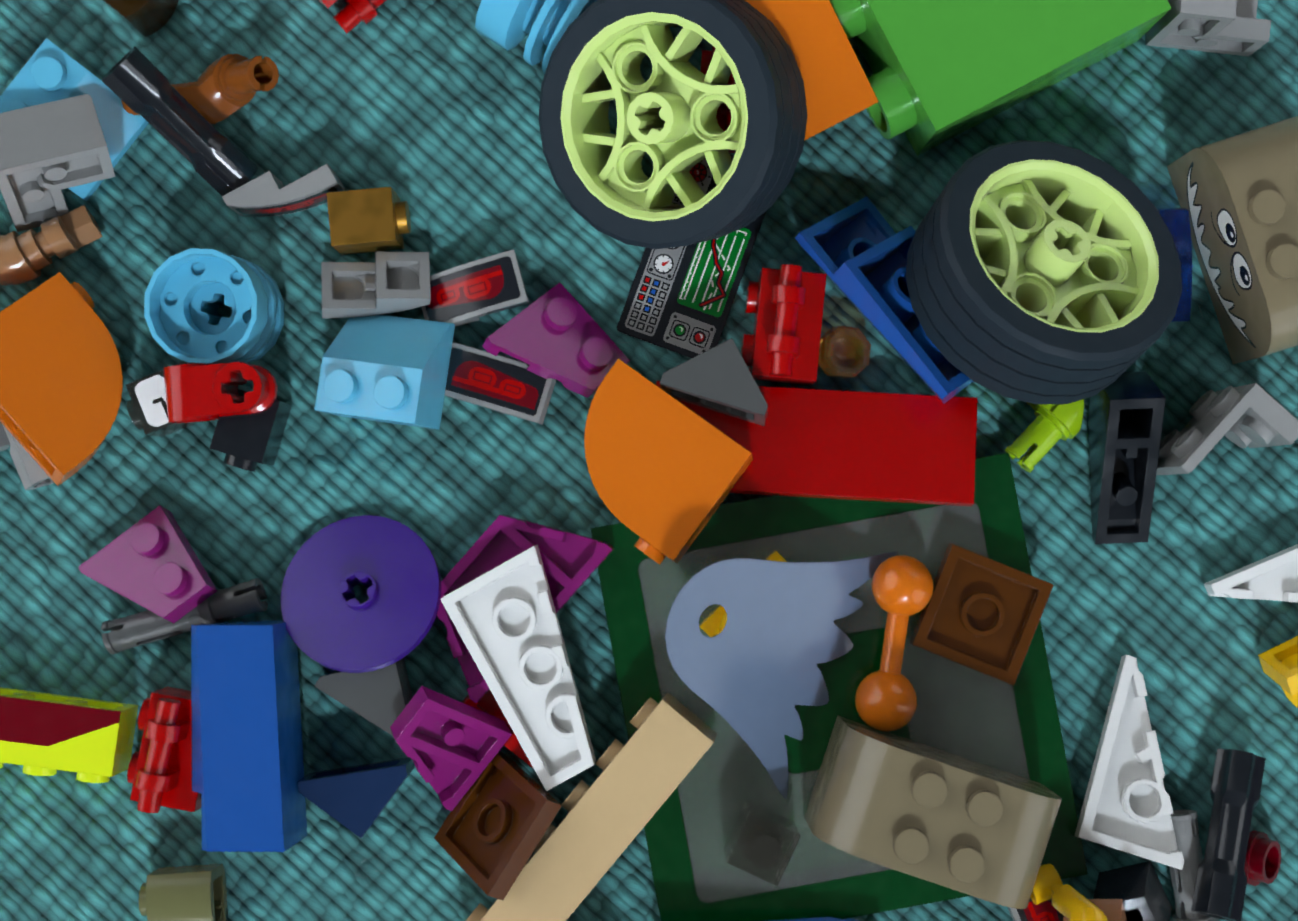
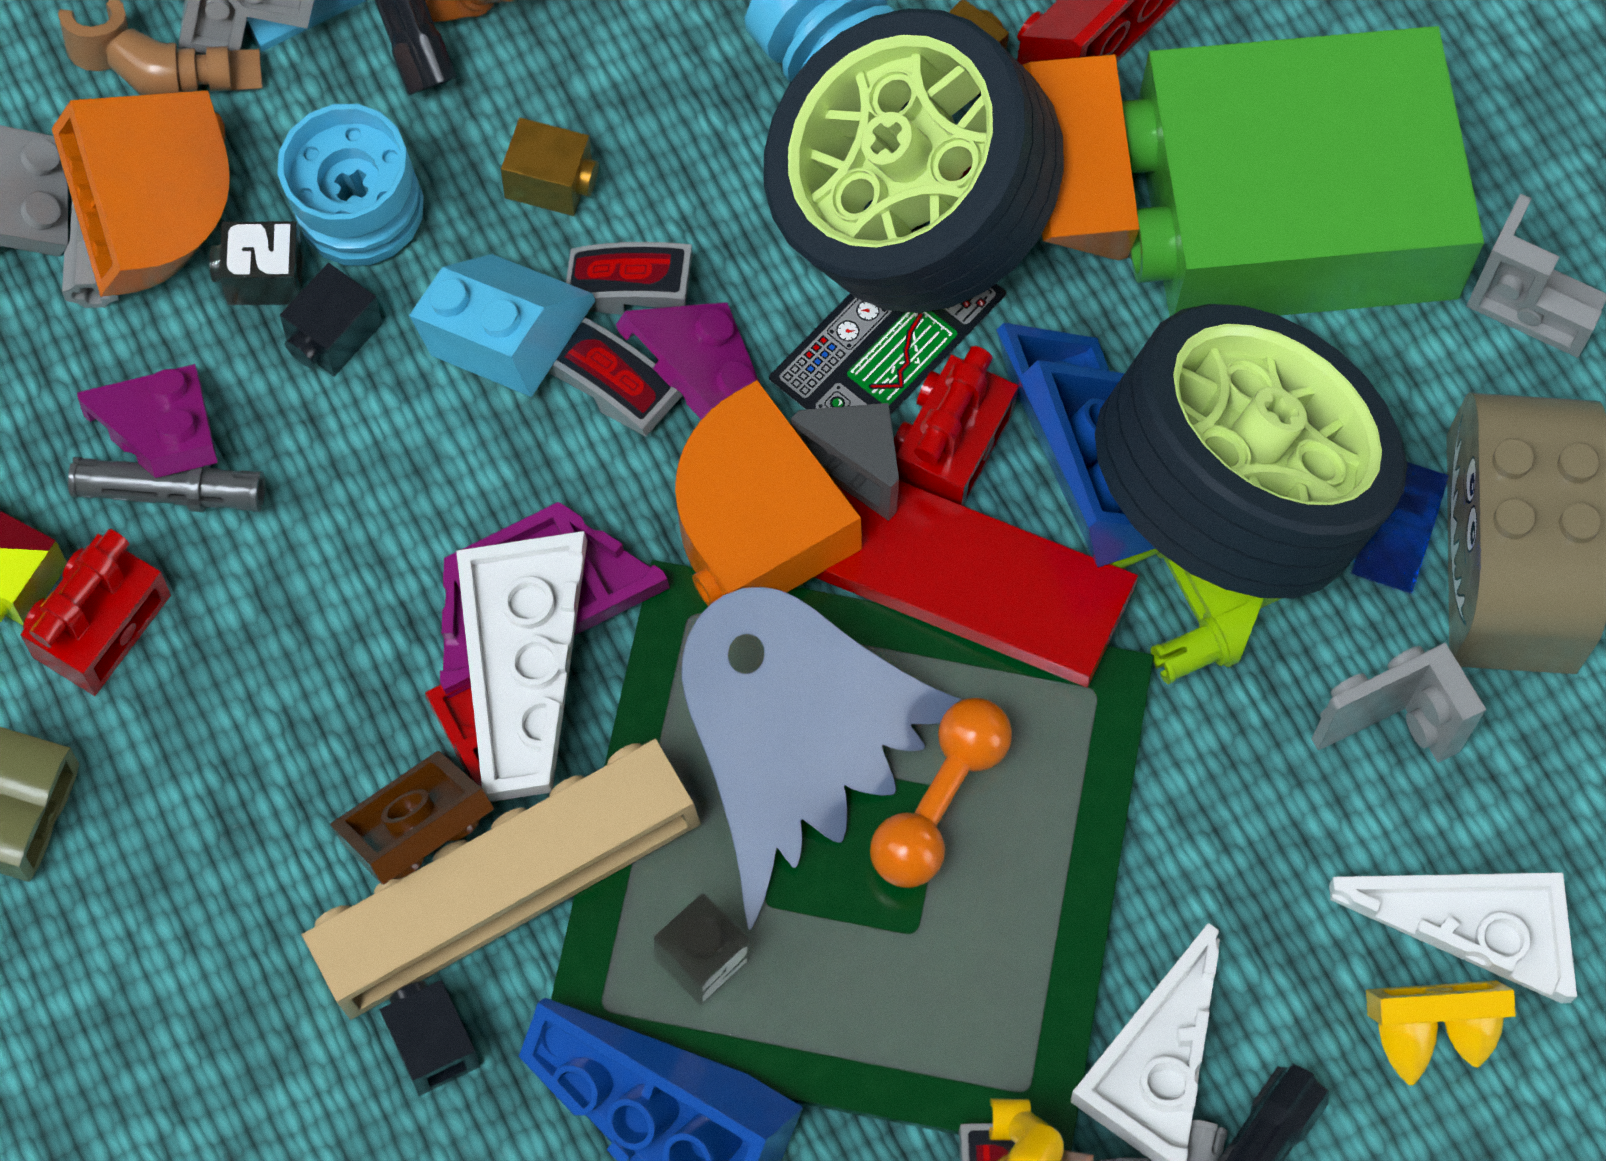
camera: 20 degrees right, 20 degrees down
(211, 391) = (317, 253): red piece -> none
(247, 736) = (183, 613): blue slope -> none
(269, 197) = (450, 109): light grey slope -> none
(321, 601) = (325, 535): dark purple piece -> none
(357, 792) = (275, 735): dark blue slope -> none
(372, 694) = (340, 634): dark grey slope -> none
(376, 288) = (542, 239): light grey slope -> none
(448, 742) = (395, 711): magenta wing -> none
(843, 352) = (1008, 483): clear orange tile -> none
(931, 814) = (914, 974): dark tan brick -> none
(981, 614) = (1053, 803): reddish brown plate -> none
(1123, 457) = (1280, 708): black slope -> none

